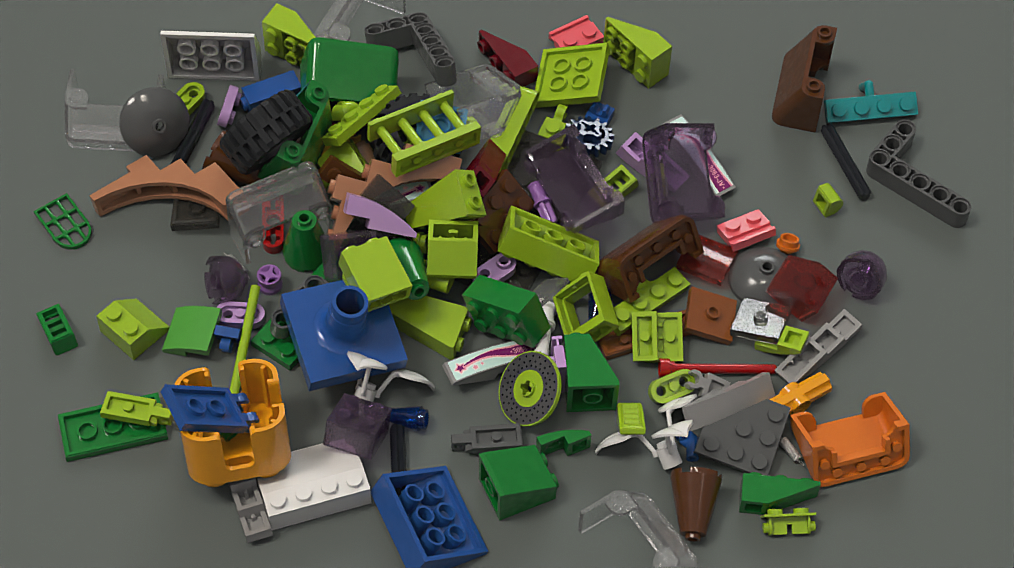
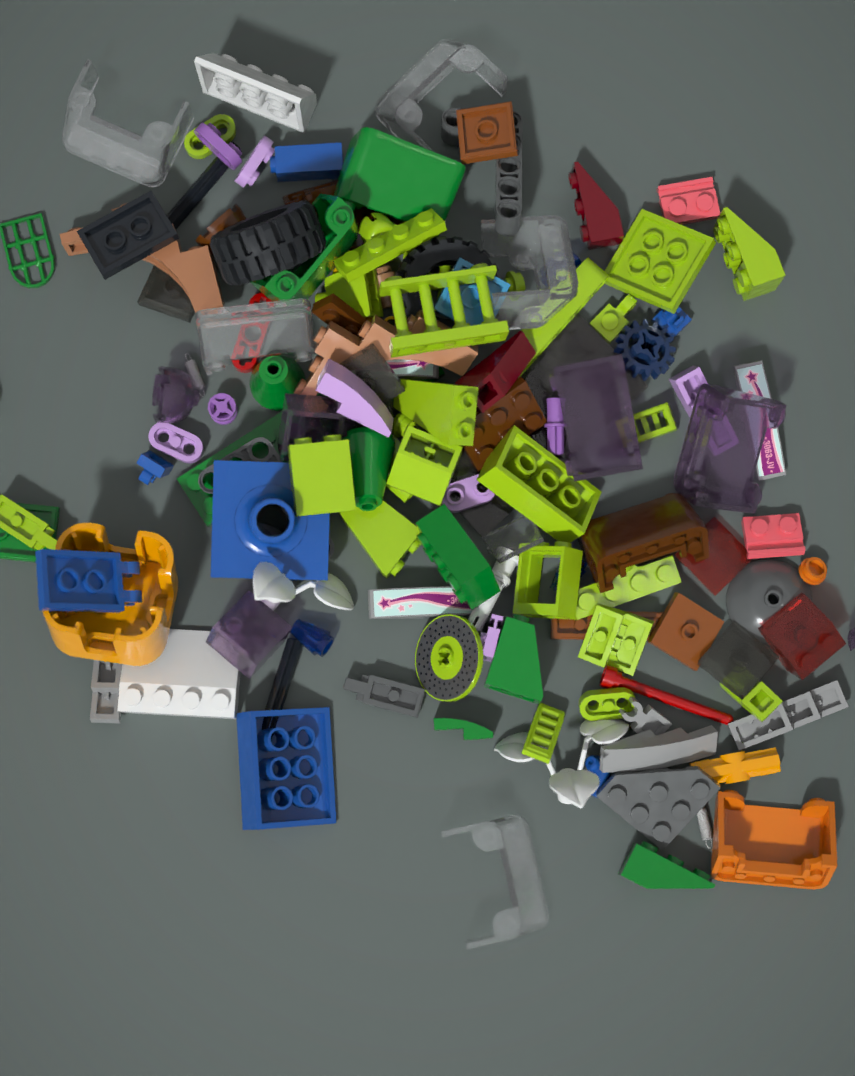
camera: 20 degrees right, 25 degrees up
(131, 326) = (57, 414): lime slope -> none
(142, 114) = (160, 151): dark grey dish -> none
(147, 173) = (128, 235): none -> black plate
(192, 330) = (118, 444): bright green slope -> none
(197, 99) = (210, 137): none -> medium lavender plate
(245, 336) = (167, 481): lime bar -> none
(285, 34) = (349, 90): lime slope -> none
(404, 25) = (486, 132): none -> dark orange plate
(516, 479) = (396, 757): green slope -> none
(695, 500) = (572, 853): reddish brown cone -> none
(778, 522) = (677, 910): lime hinge -> none

